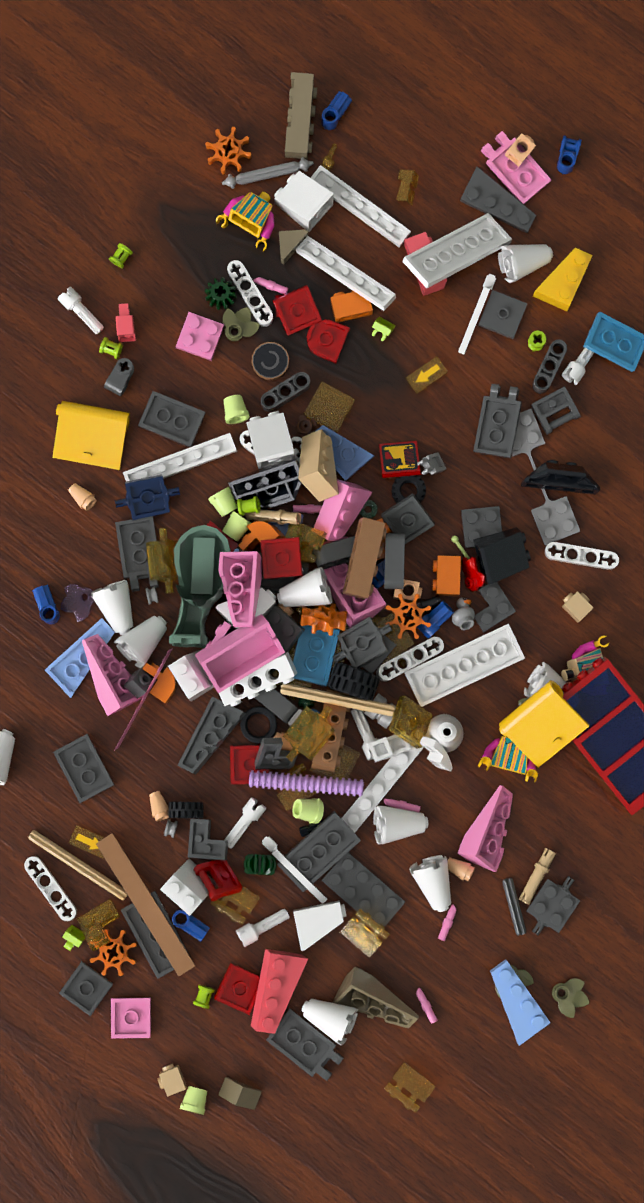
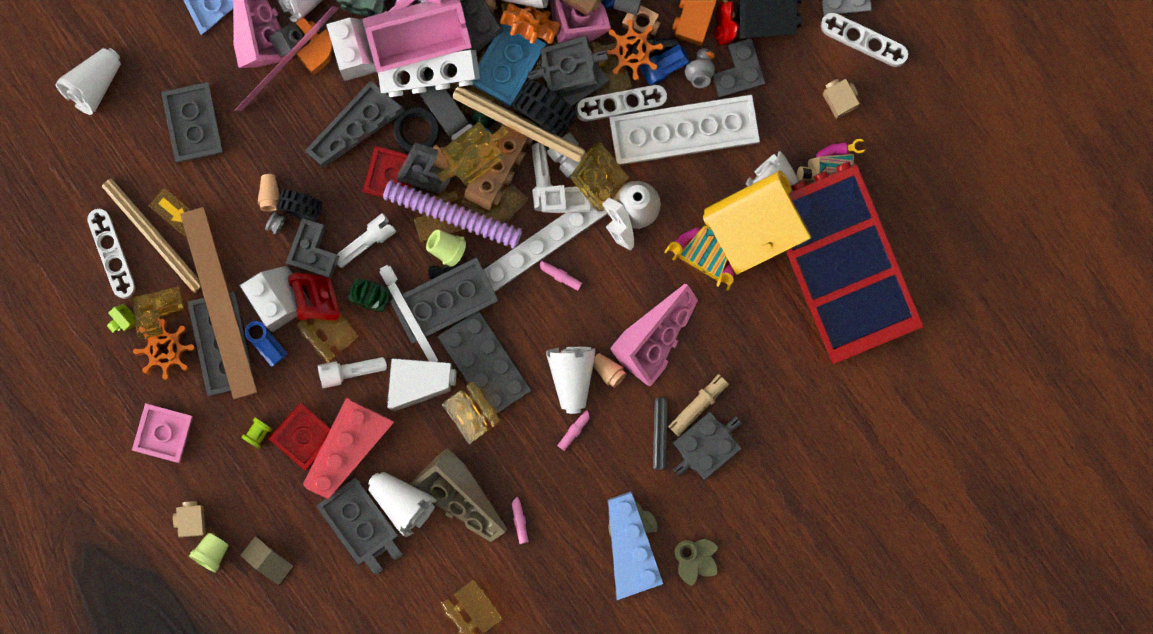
camera: 15 degrees right, 0 degrees up
(86, 988) = (119, 383): dark grey plate -> none
(397, 824) = (548, 294): white cone -> none

